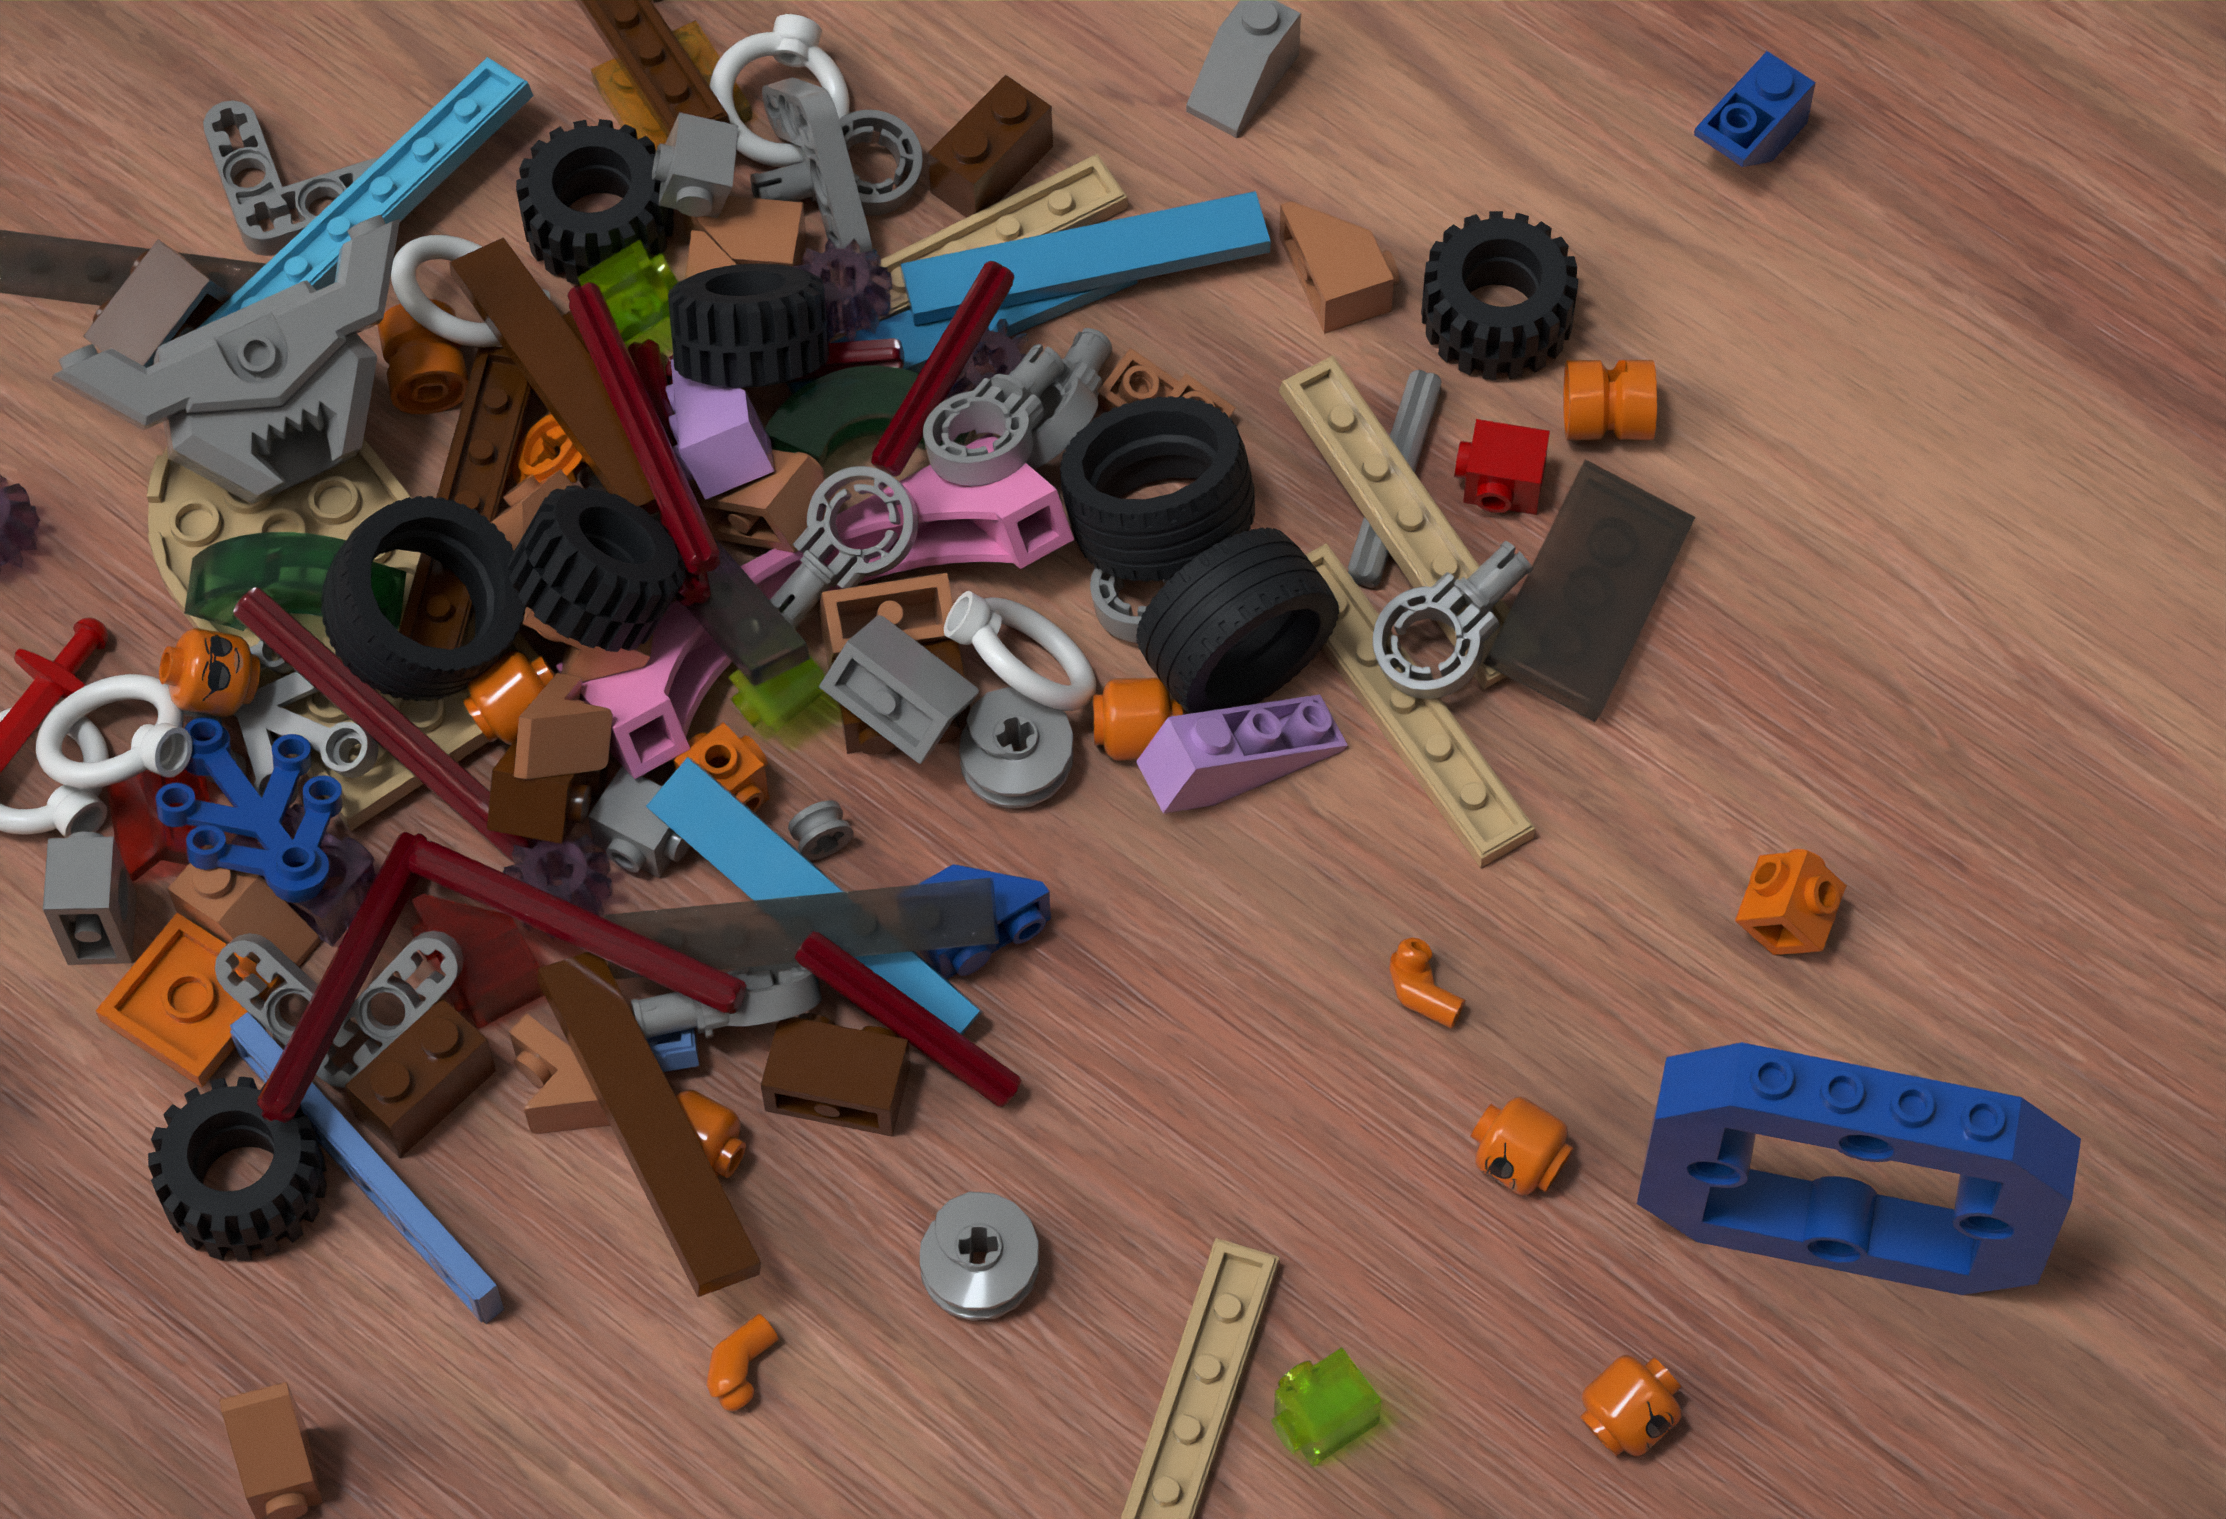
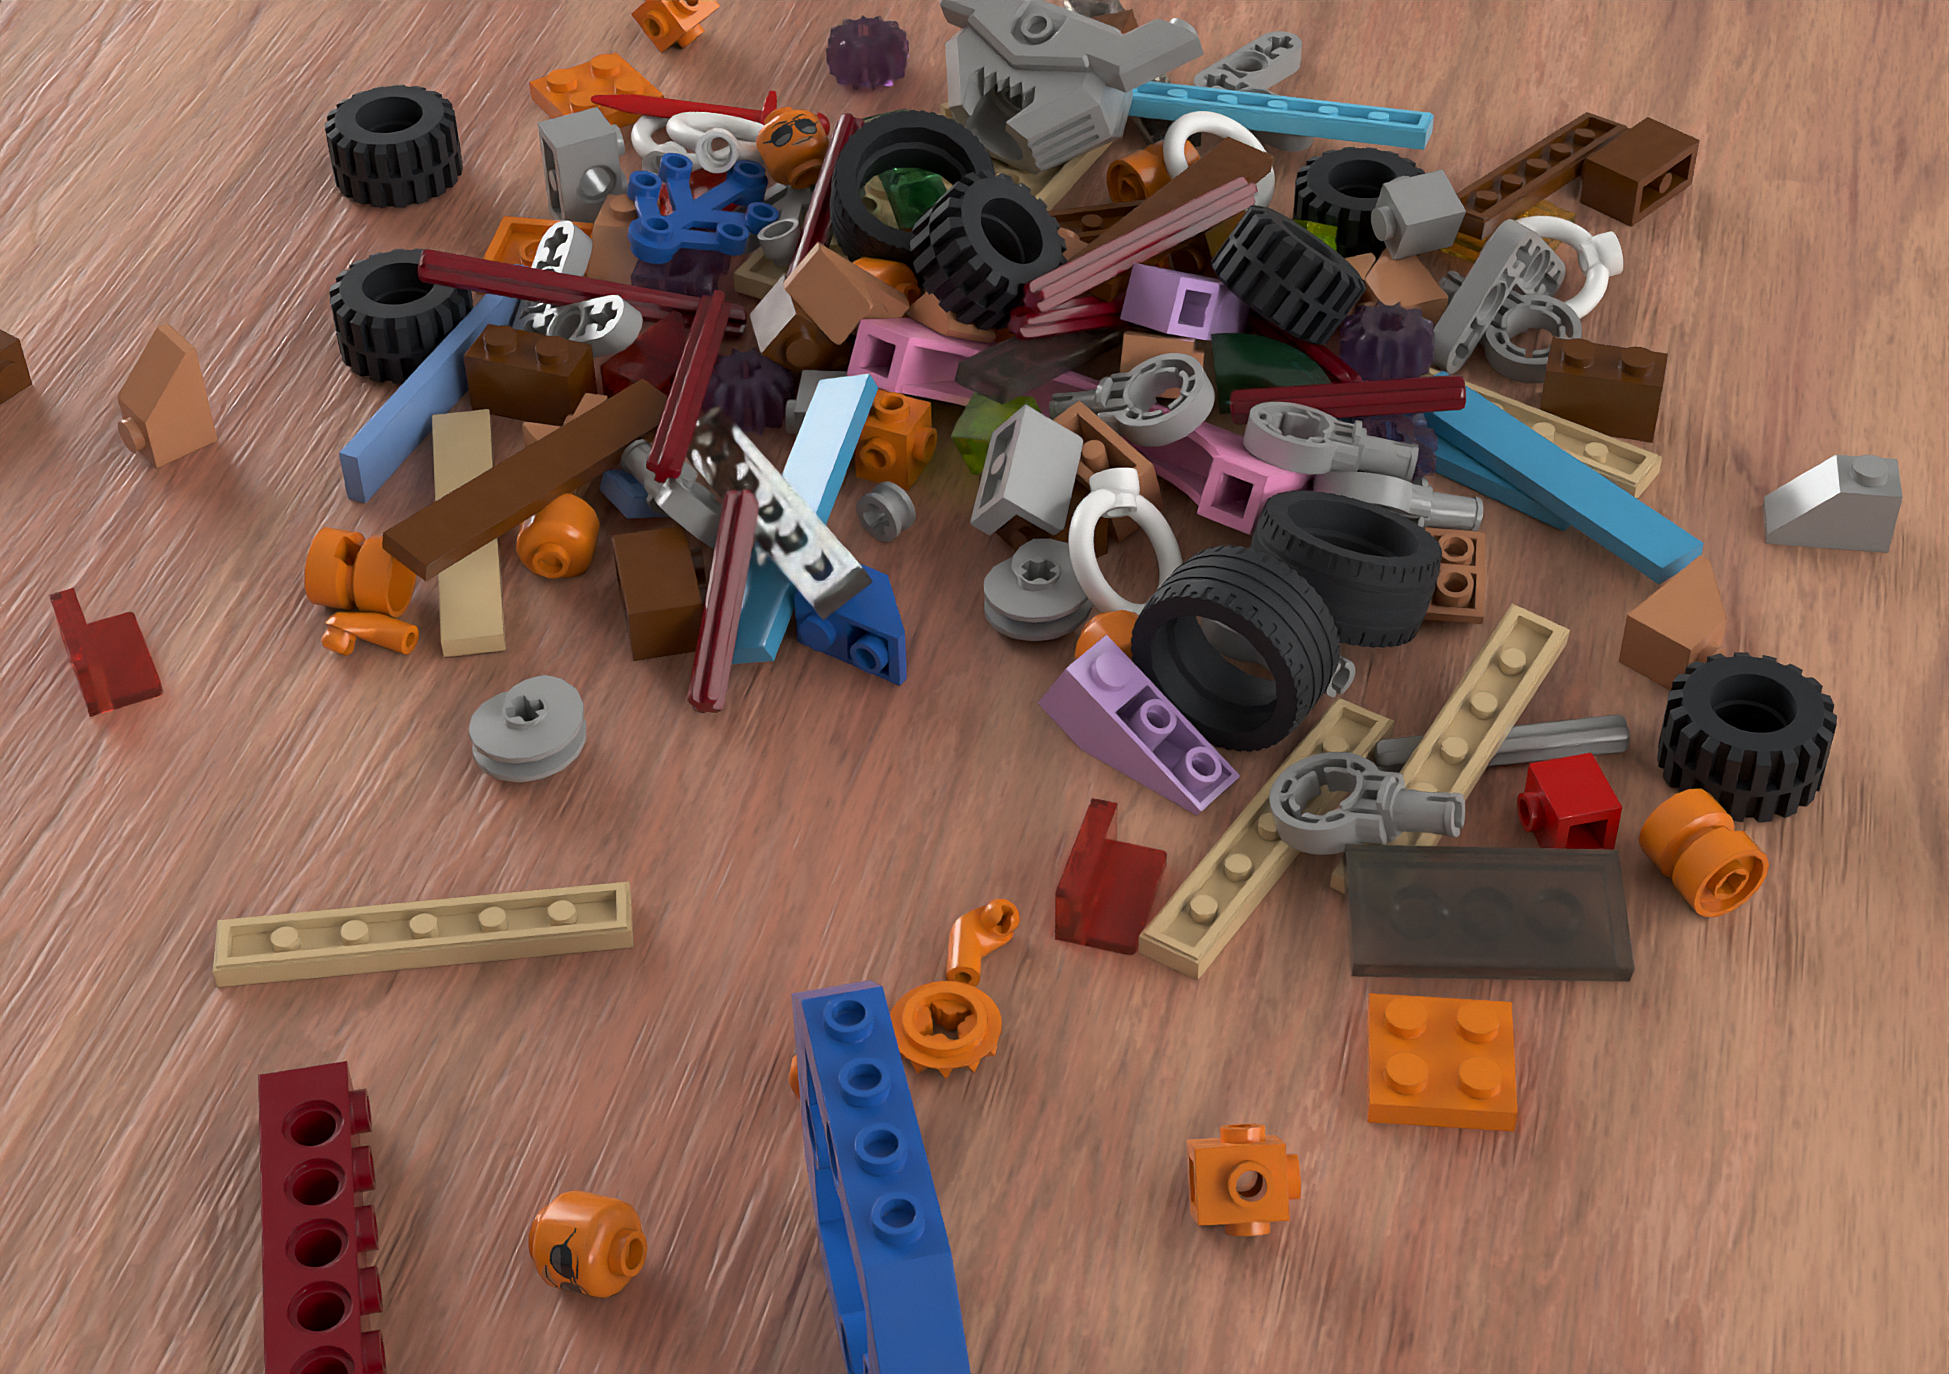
camera: 65 degrees right, 20 degrees down
(593, 1215) = (473, 586): none -> tan tile
(681, 1321) = (354, 571): none -> orange wheel
(1324, 1406) = (484, 1010): clear neon green brick -> none
(1407, 857) = (1106, 885): none -> clear red panel
(1529, 1030) = (953, 1007): none -> orange gear
(1714, 703) = (1441, 1062): none -> orange plate

